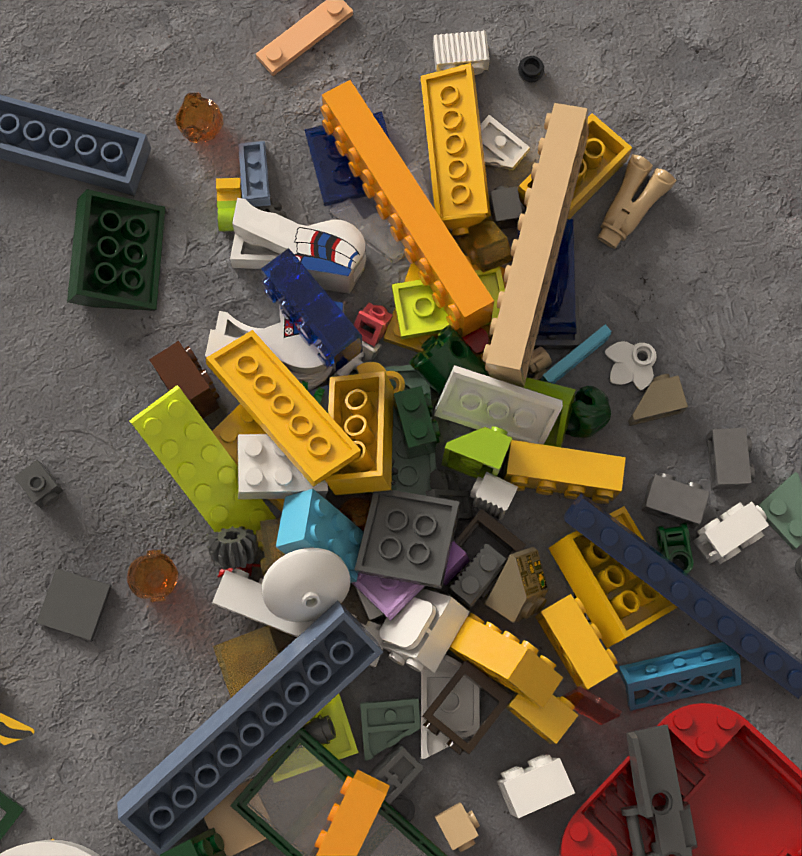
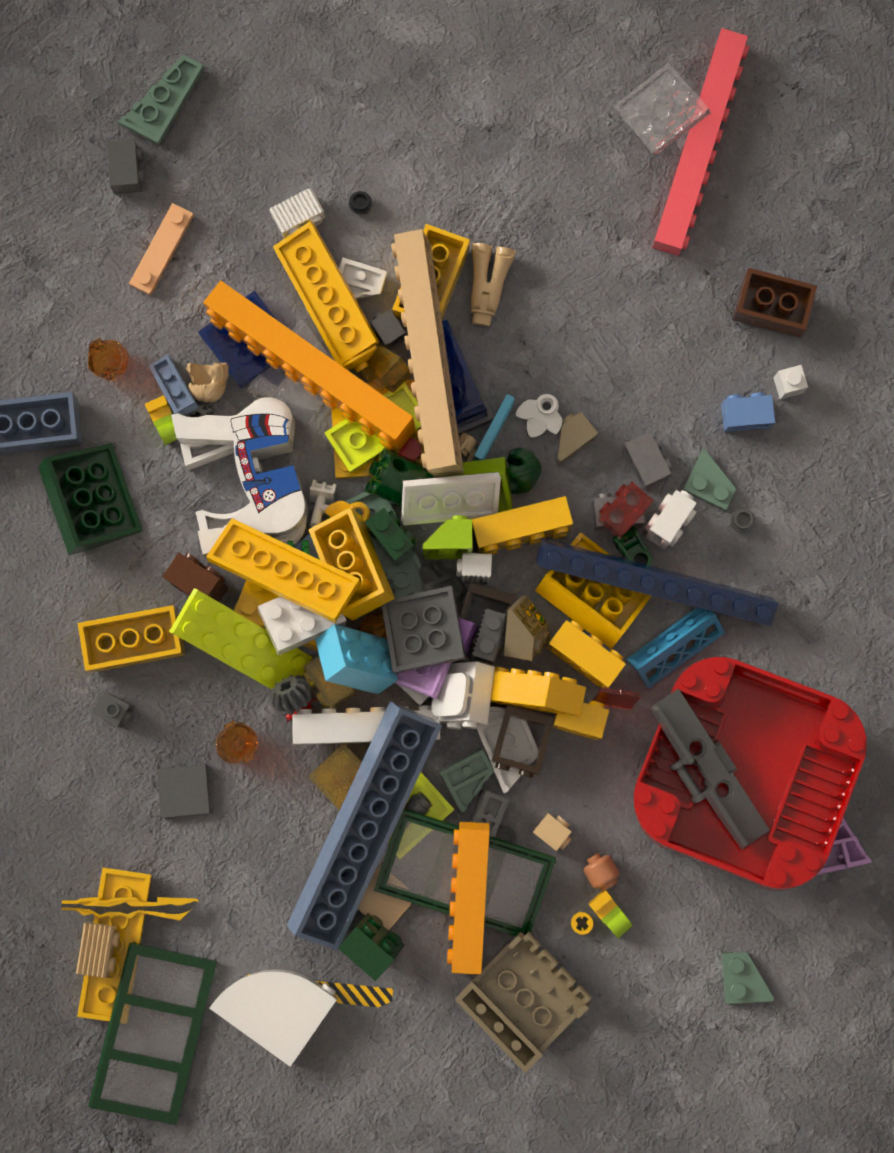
camera: 20 degrees left, 5 degrees up
(87, 416) = (130, 639): none -> yellow brick
(293, 183) = (207, 381): none -> tan hair
(305, 584) = (360, 699): white dish -> none
(312, 310) = (272, 483): clear blue brick -> none
(376, 318) = (324, 464): coral brick -> none
(535, 785) = (598, 776): white brick -> none
(687, 505) = (629, 513): none -> clear red brick

